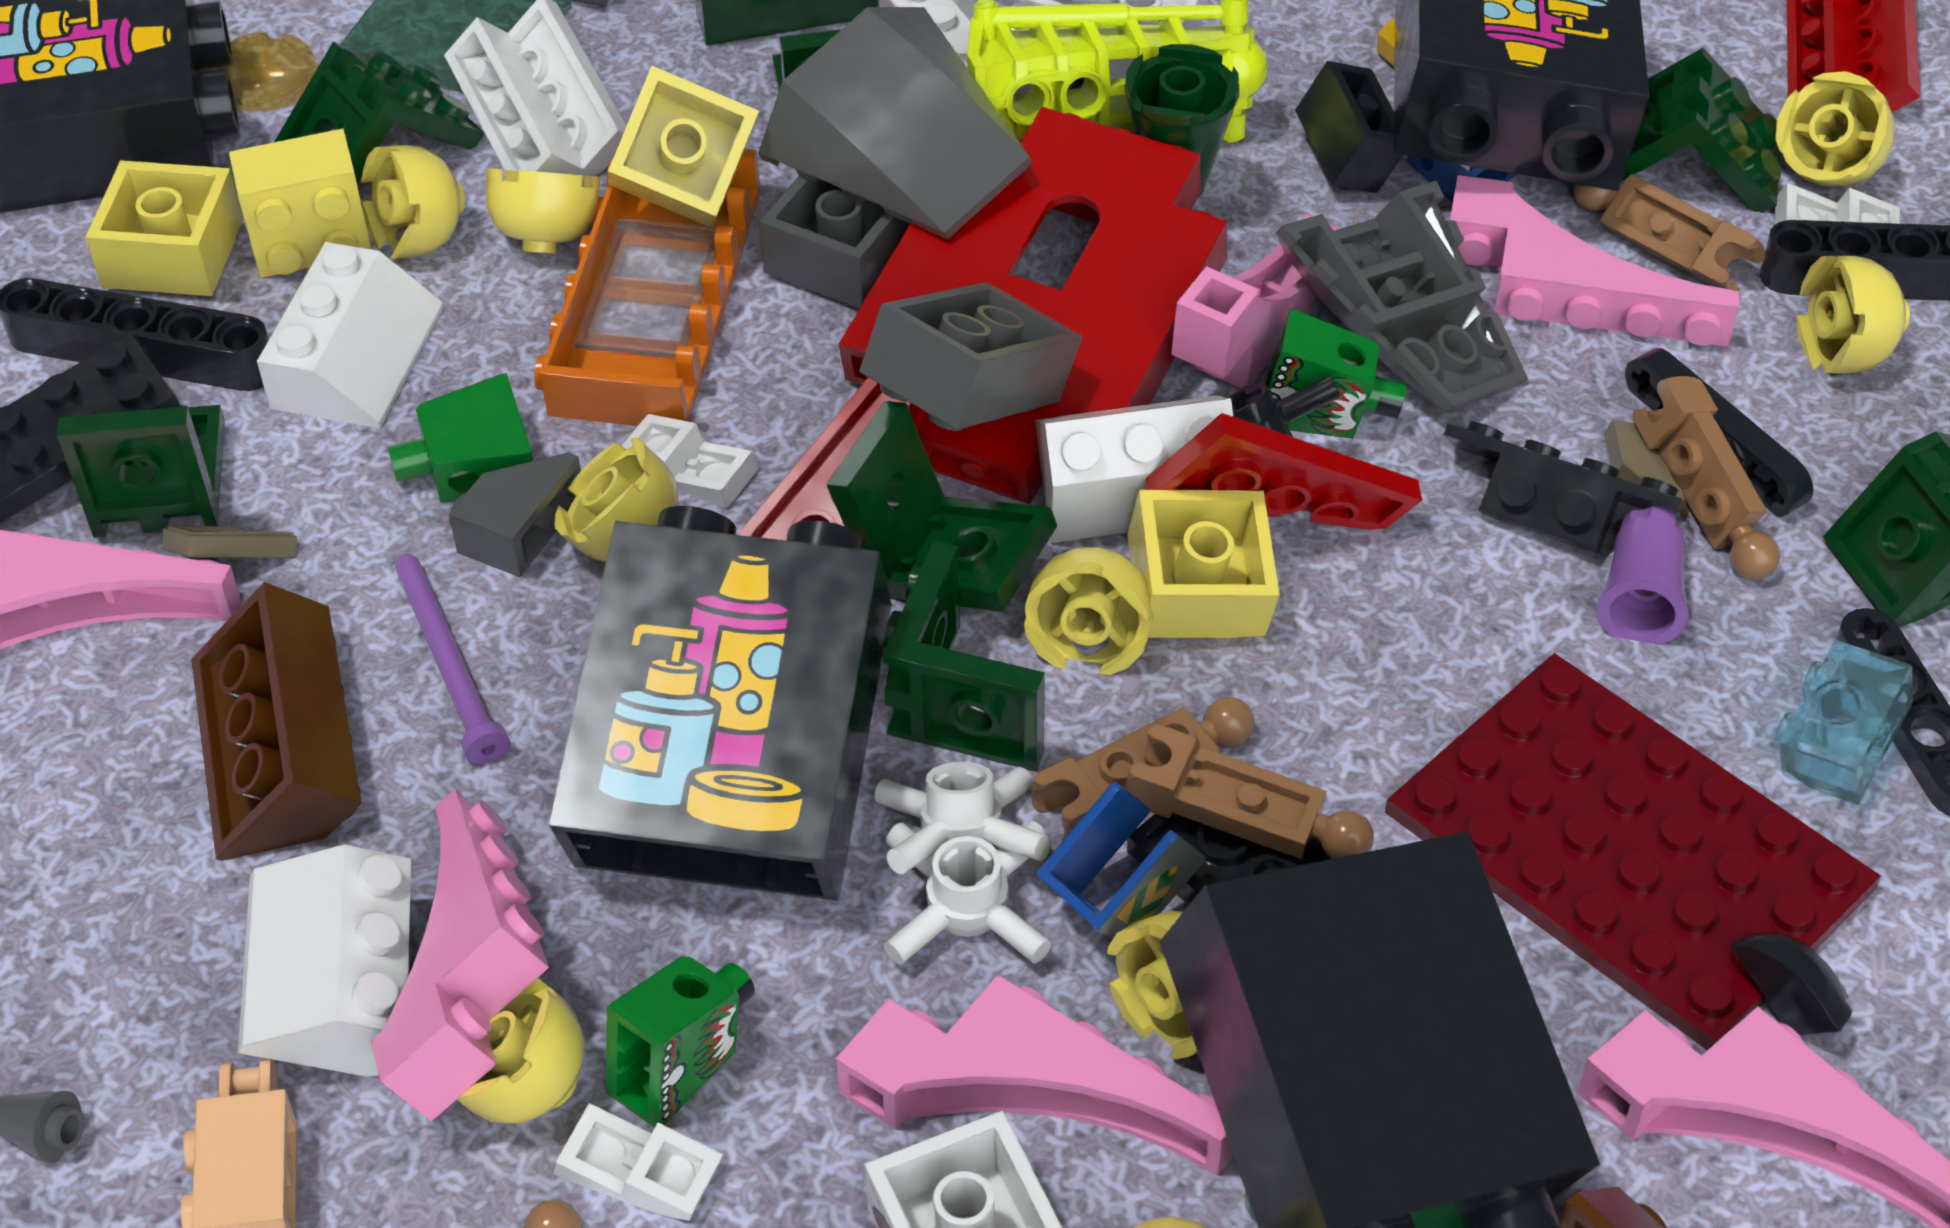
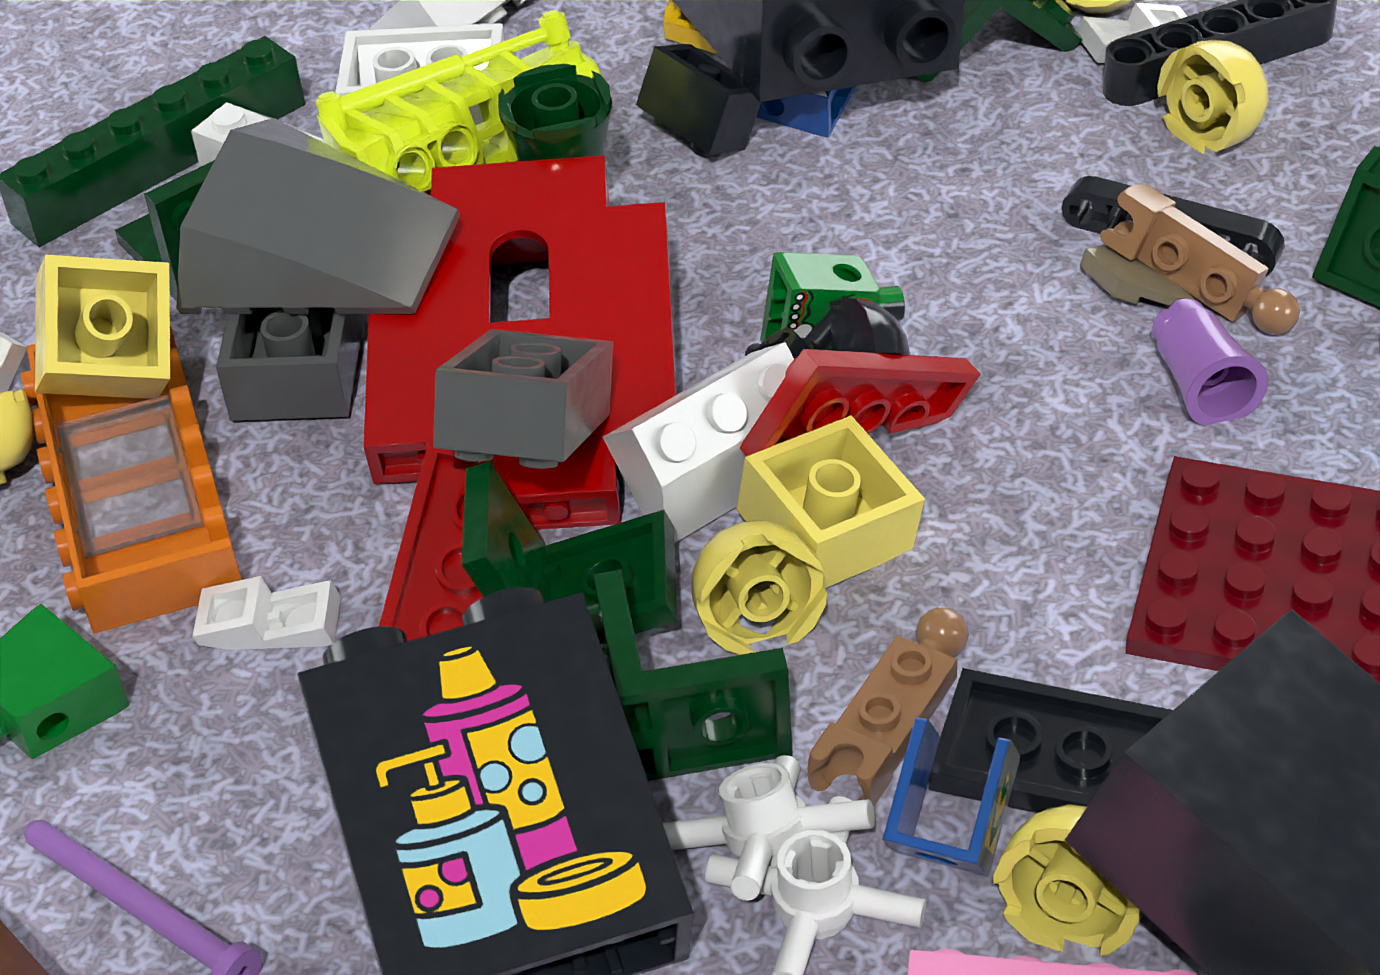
camera: 25 degrees left, 5 degrees down
(513, 511) = (125, 733): dark grey slope -> none
(615, 487) = (236, 677): light yellow cylinder -> none
(1236, 321) = (723, 268): bright pink arch -> none
(1241, 798) = (1019, 688): medium nougat plate -> none
(1326, 419) = (865, 328): none -> black brick
(1412, 295) = (830, 203): dark grey wedge -> none
(1553, 495) = (1079, 327): black bracket -> none
(1568, 281) = (962, 156): bright pink arch -> none
(1672, 230) = (1020, 85): medium nougat plate -> none

